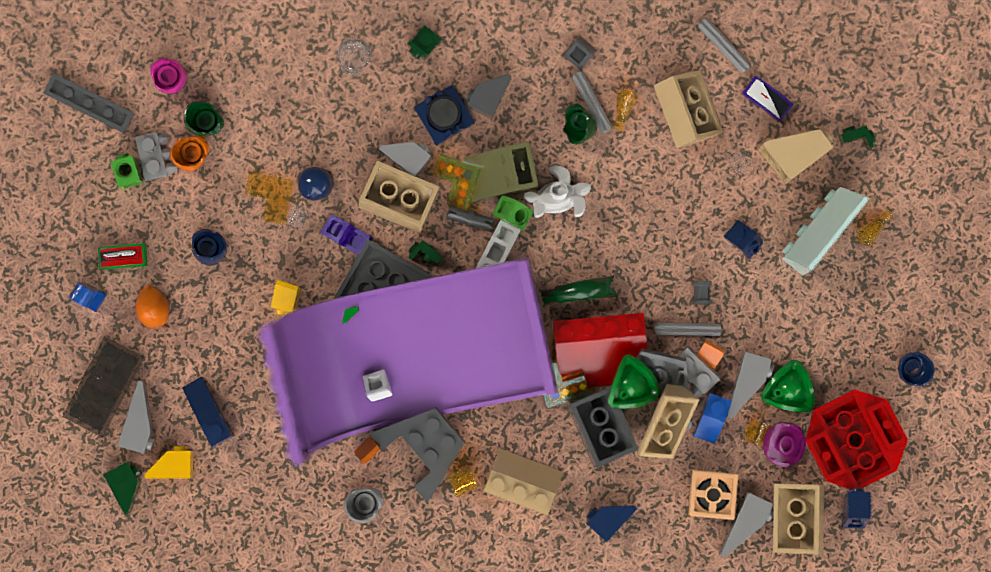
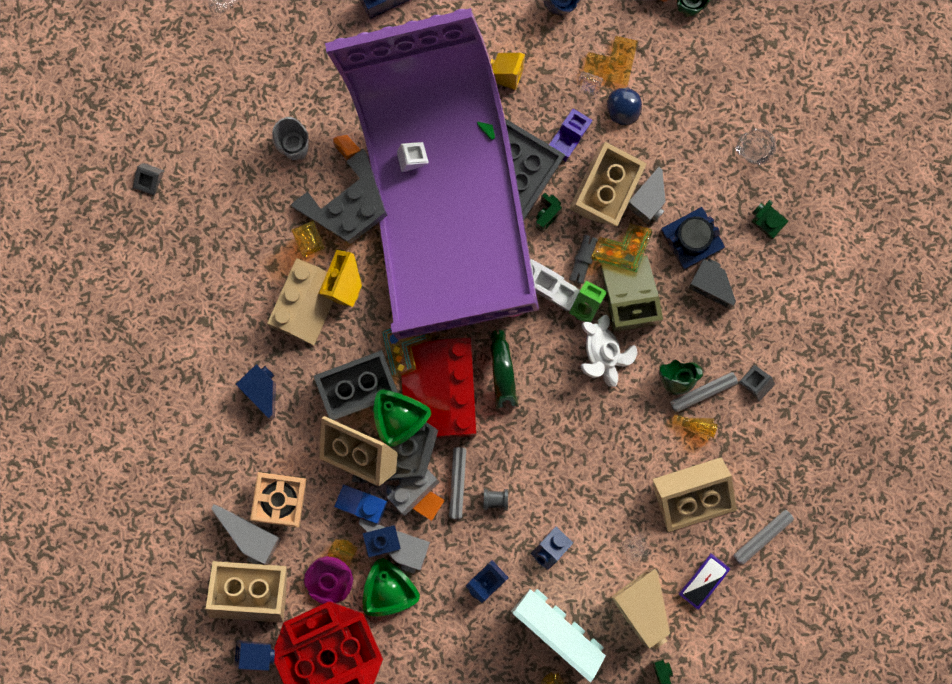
camera: 90 degrees right, 5 degrees down
(500, 446) = (342, 280): none -> yellow slope
(747, 396) = (381, 541): none -> dark blue bracket
(778, 298) = (486, 582): none -> dark blue bracket

